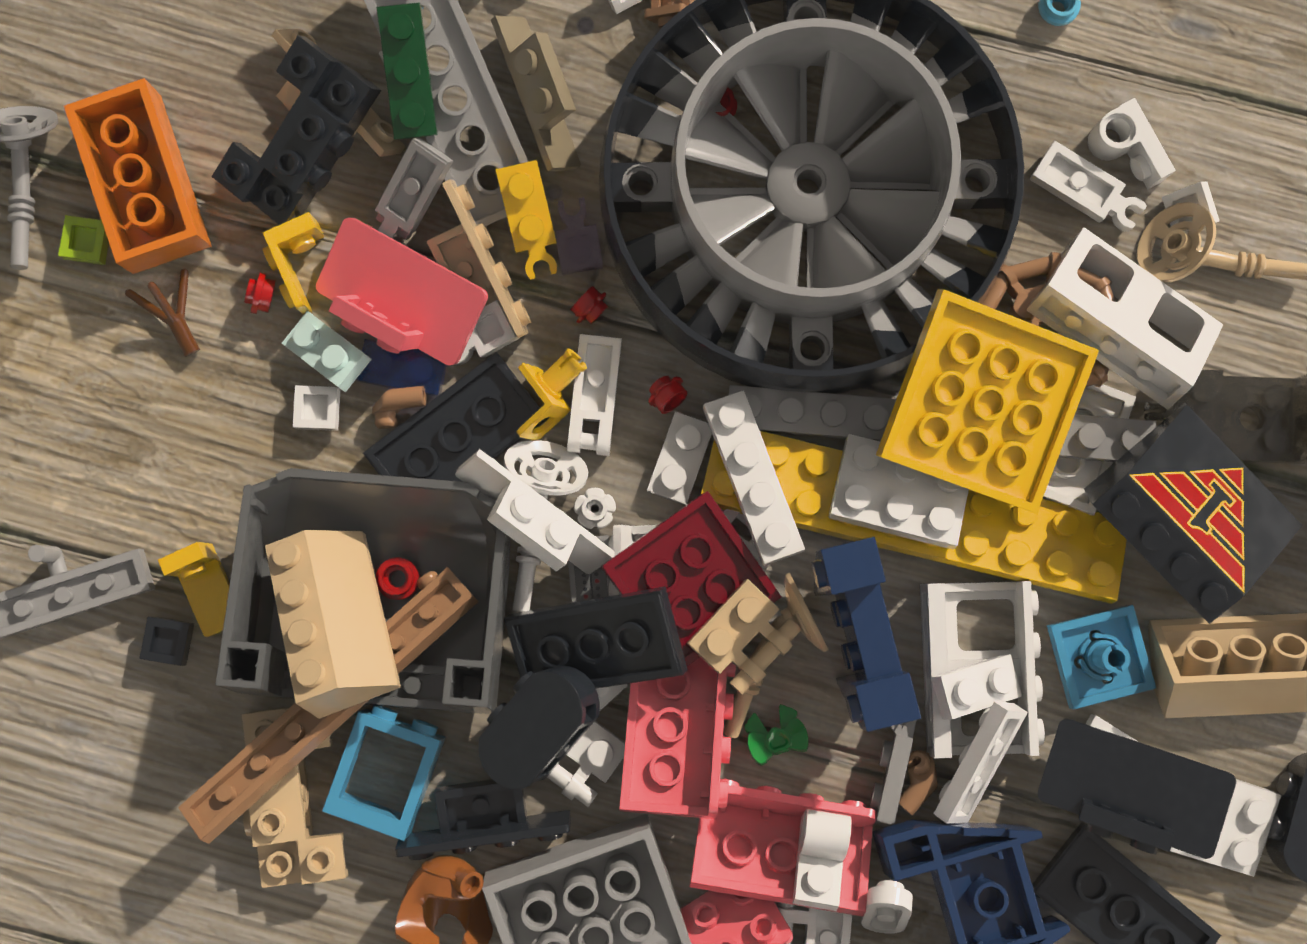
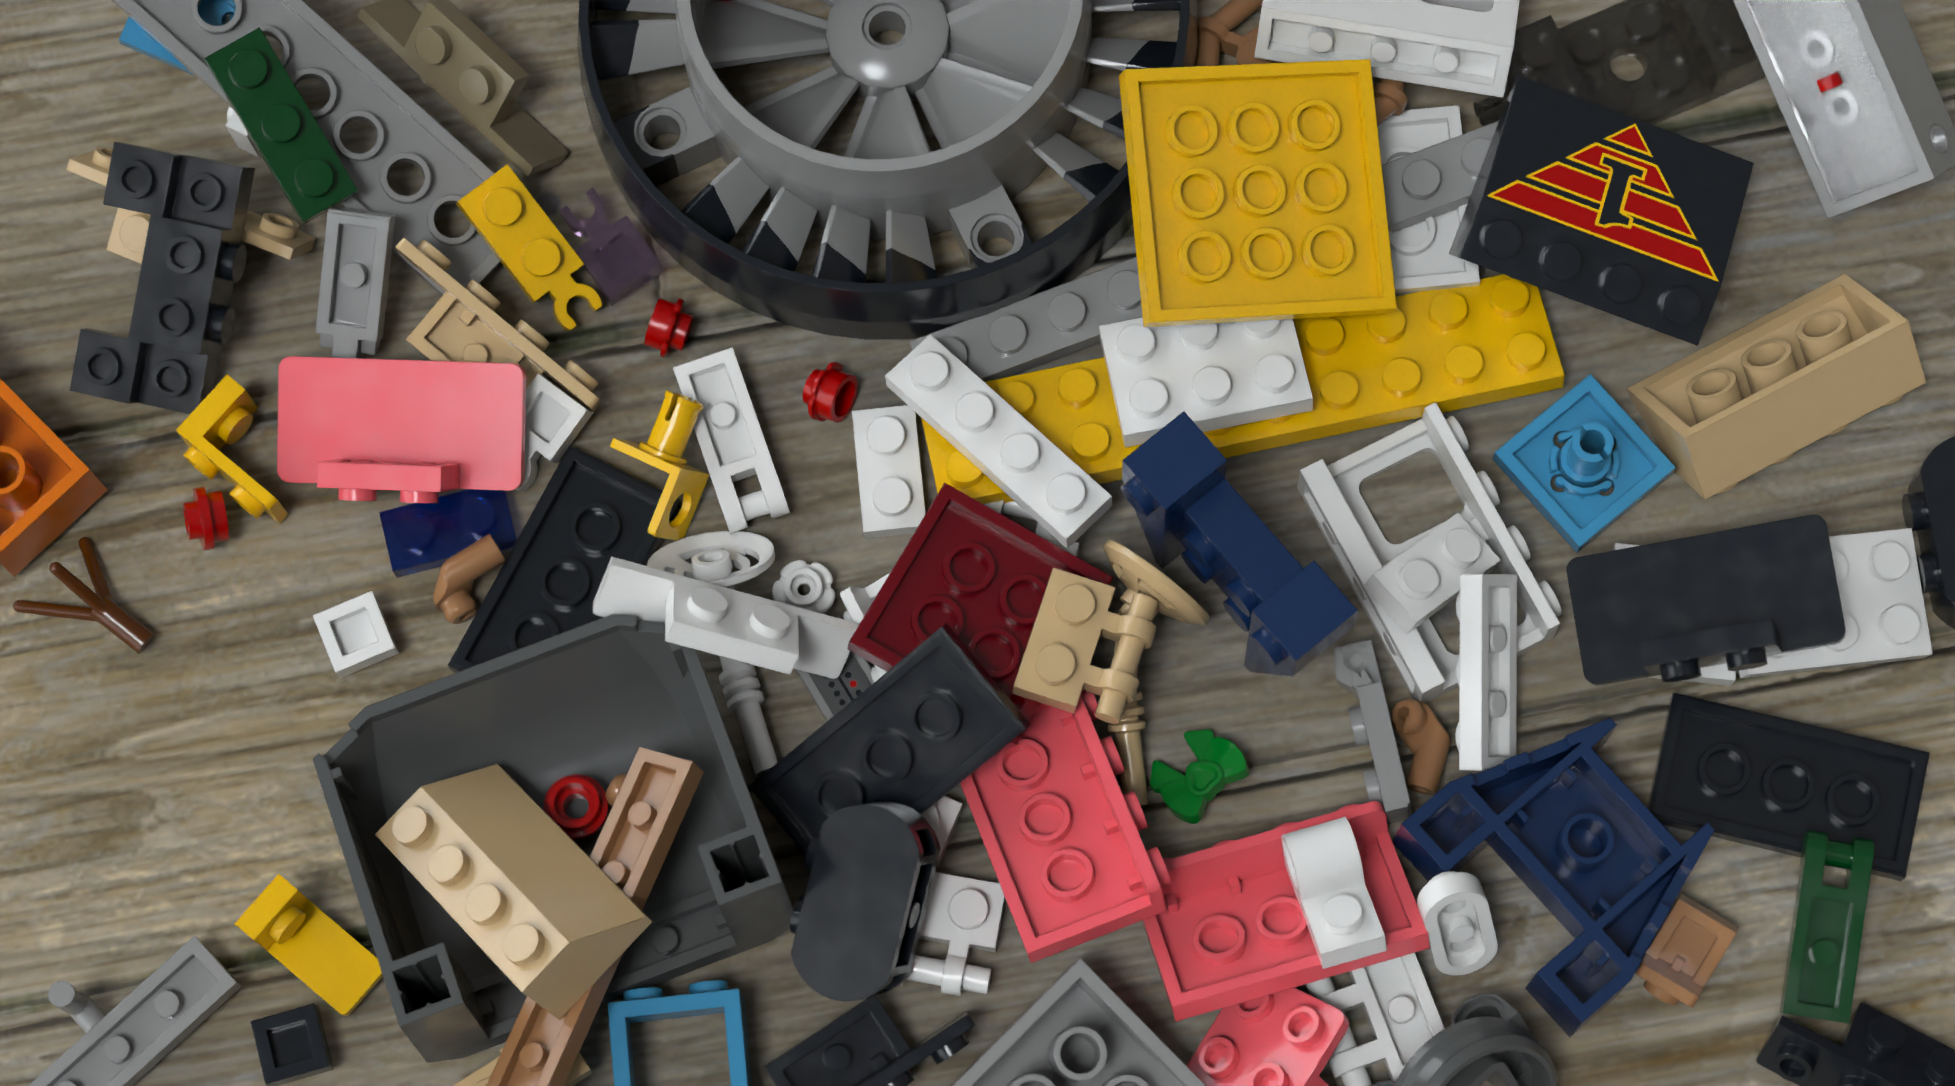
camera: 20 degrees left, 10 degrees down
(326, 351) = (334, 551): light aqua plate -> none

